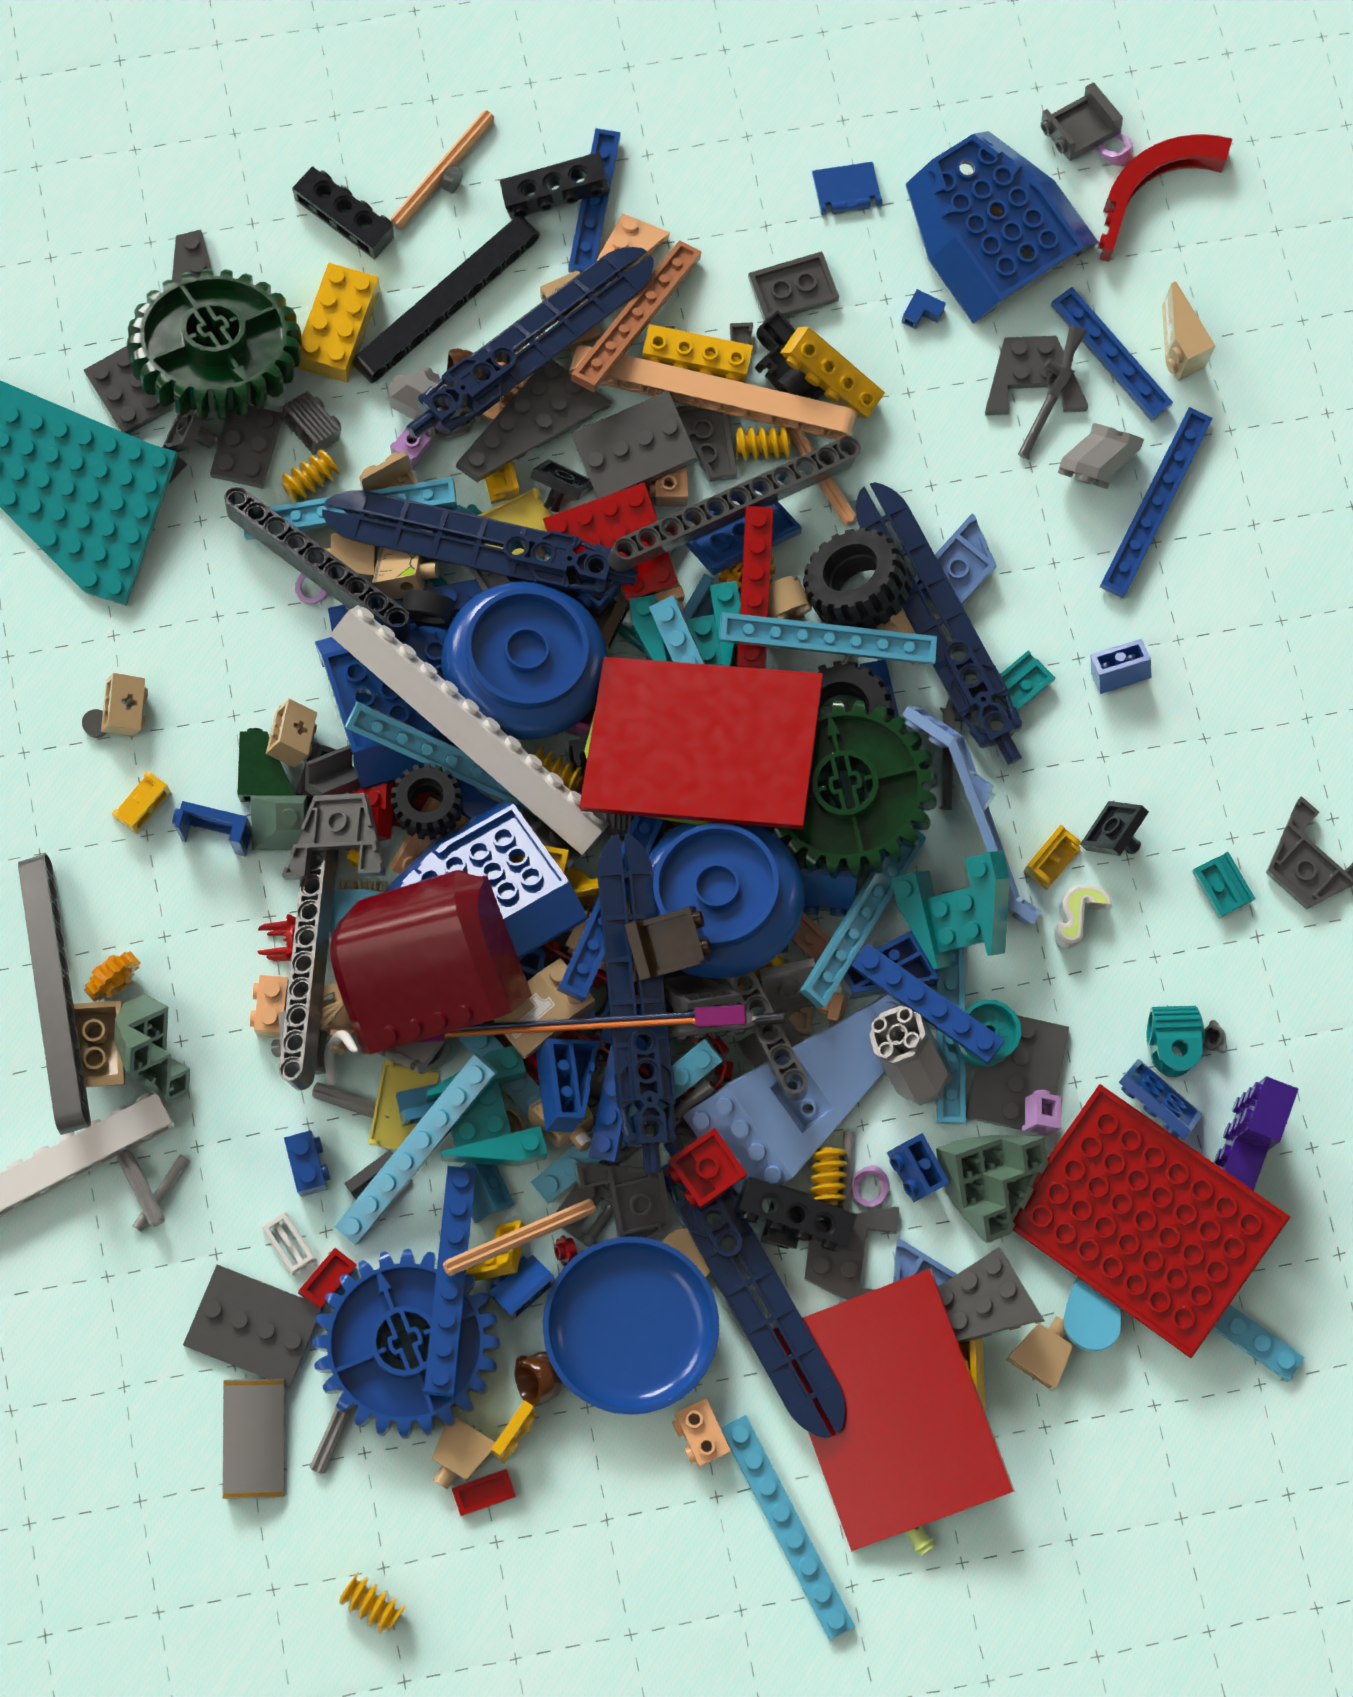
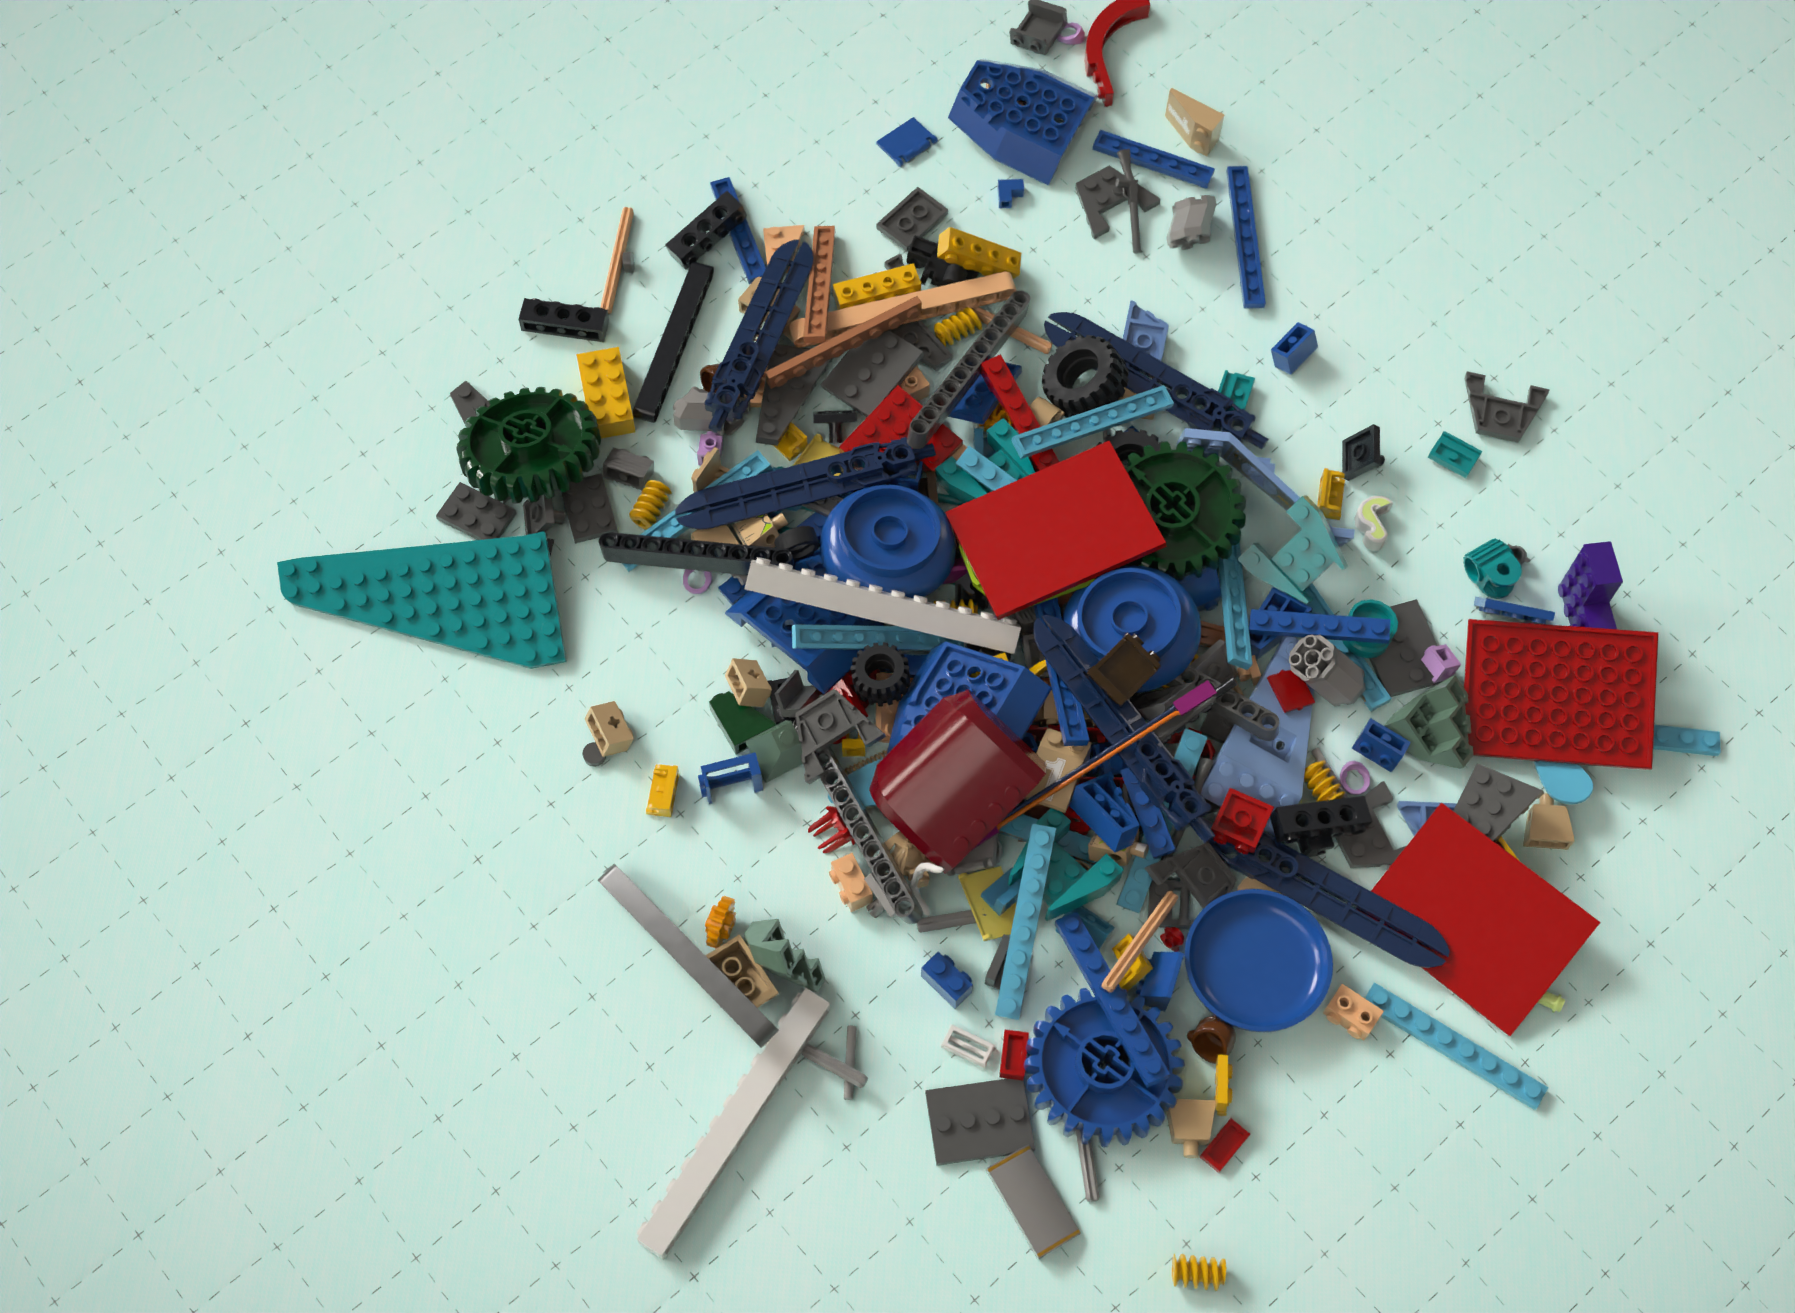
camera: 25 degrees left, 10 degrees down
(626, 401) = (838, 345): none -> nougat plate
(856, 1056) = (1290, 691): none -> red piece

